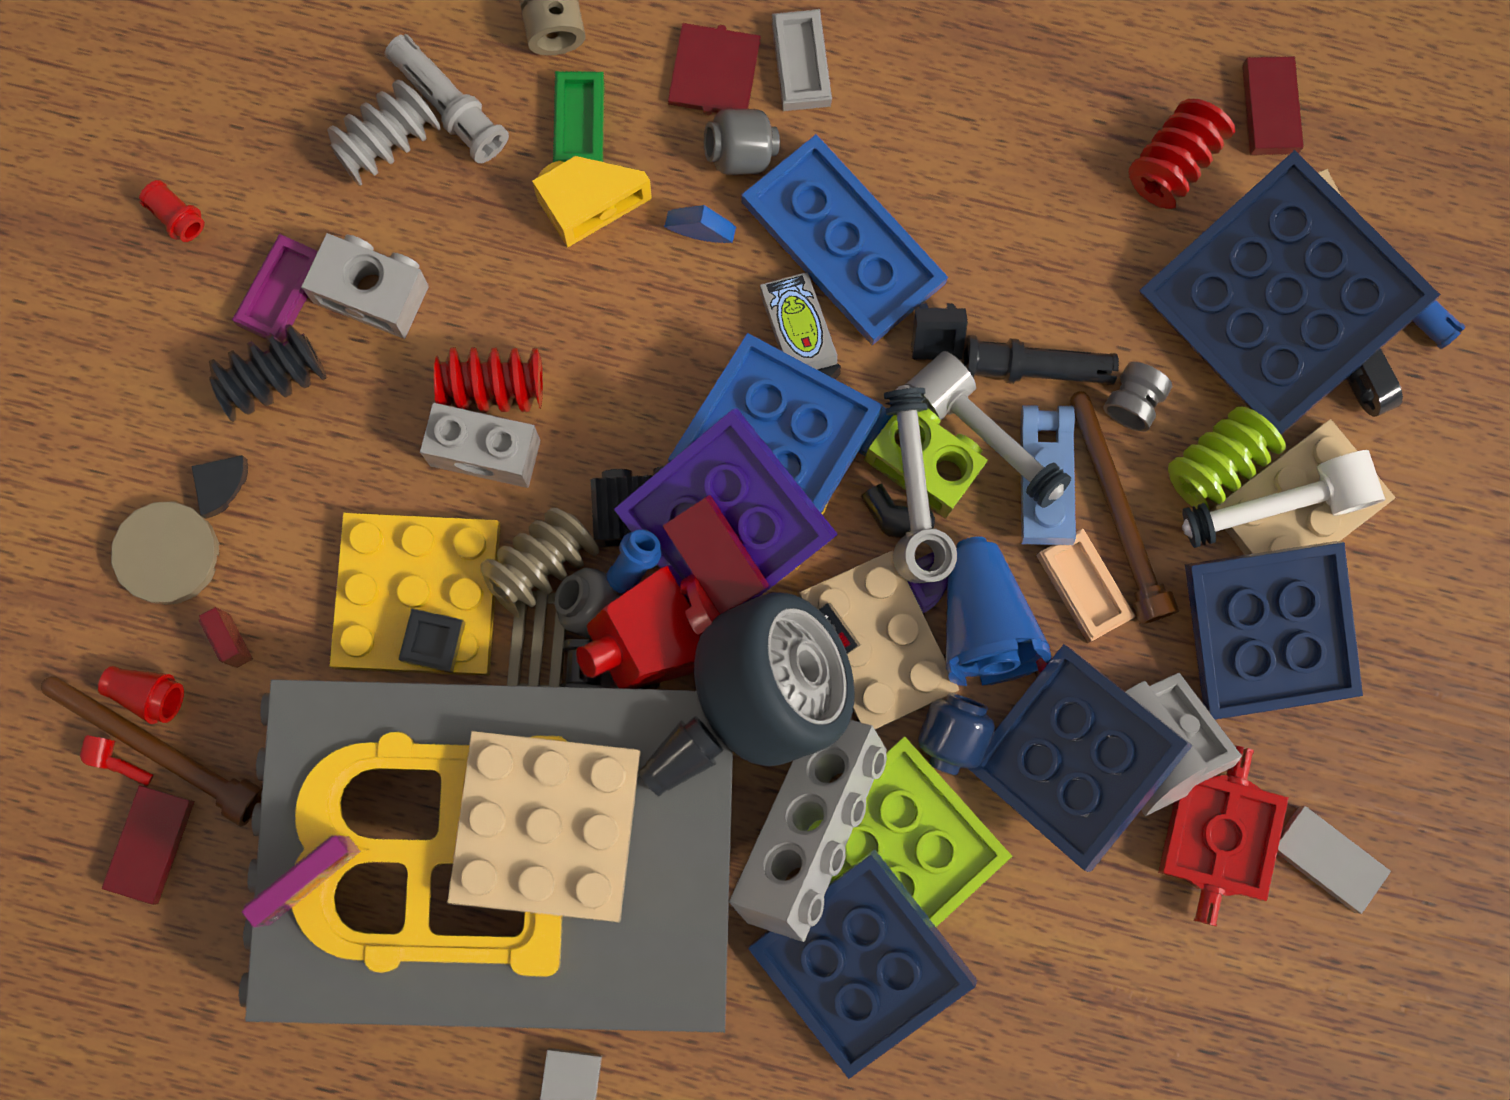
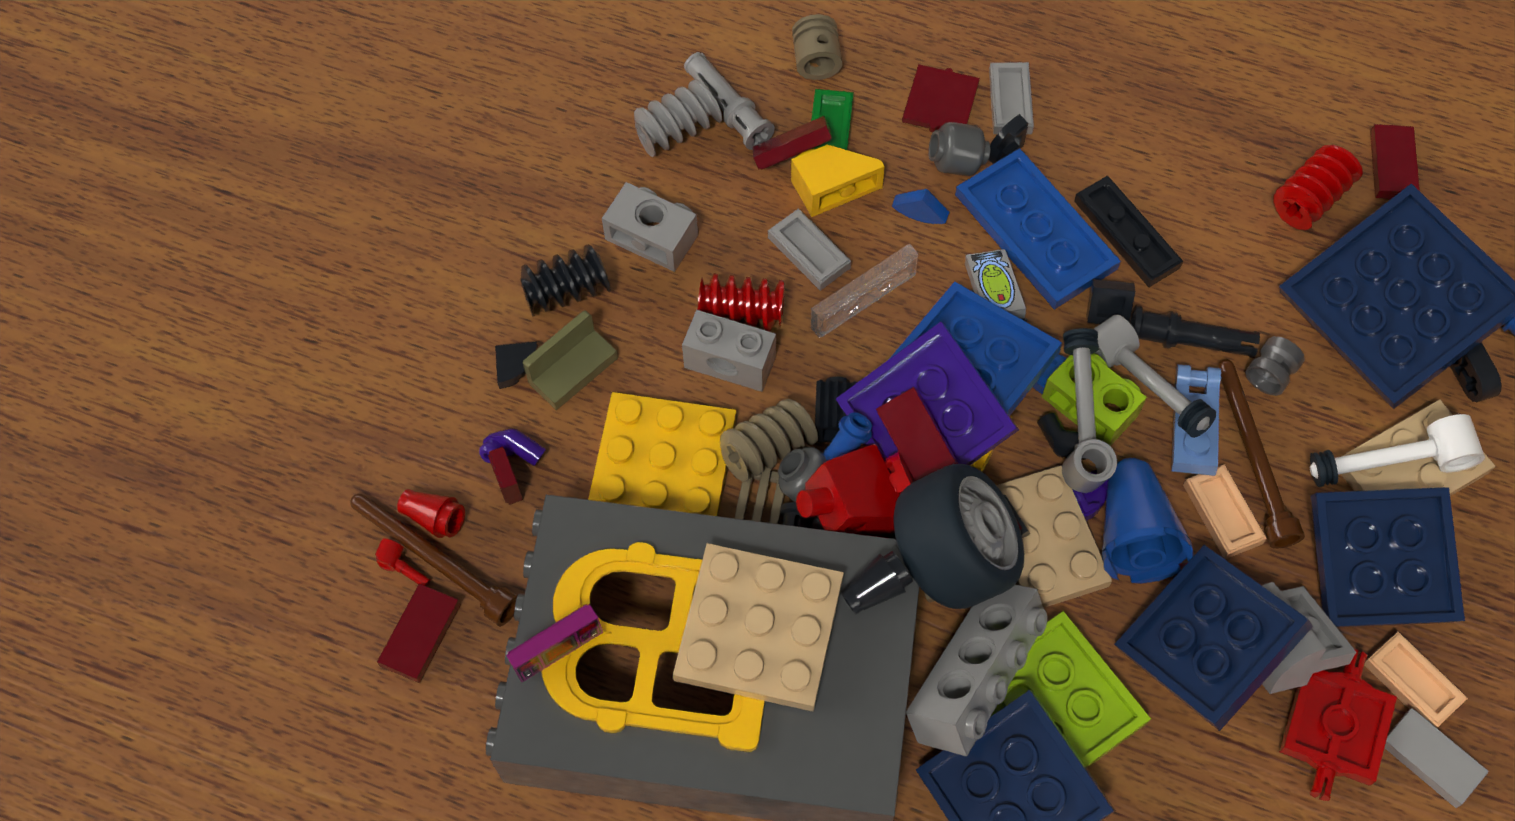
camera: 15 degrees right, 15 degrees down
(165, 553) = (464, 409): dark tan tile -> none
(172, 211) = (511, 168): red pin -> none
(228, 592) = (513, 443): none -> dark purple arm
(277, 289) = (579, 224): magenta tile -> none
(286, 477) = (568, 361): none -> olive panel
(432, 640) = (674, 490): black tile -> none
(531, 155) = (791, 143): none -> dark red tile
(567, 293) = (809, 249): none -> light grey tile
(639, 347) = (864, 291): none -> clear tile
(801, 122) = (1008, 139): none -> black tile
(955, 230) = (1128, 231): none -> black tile
(956, 733) = (1107, 613): dark blue head -> none
(1223, 454) = (1348, 417): lime piece -> none
(1308, 770) = (1415, 680): none -> light nougat tile

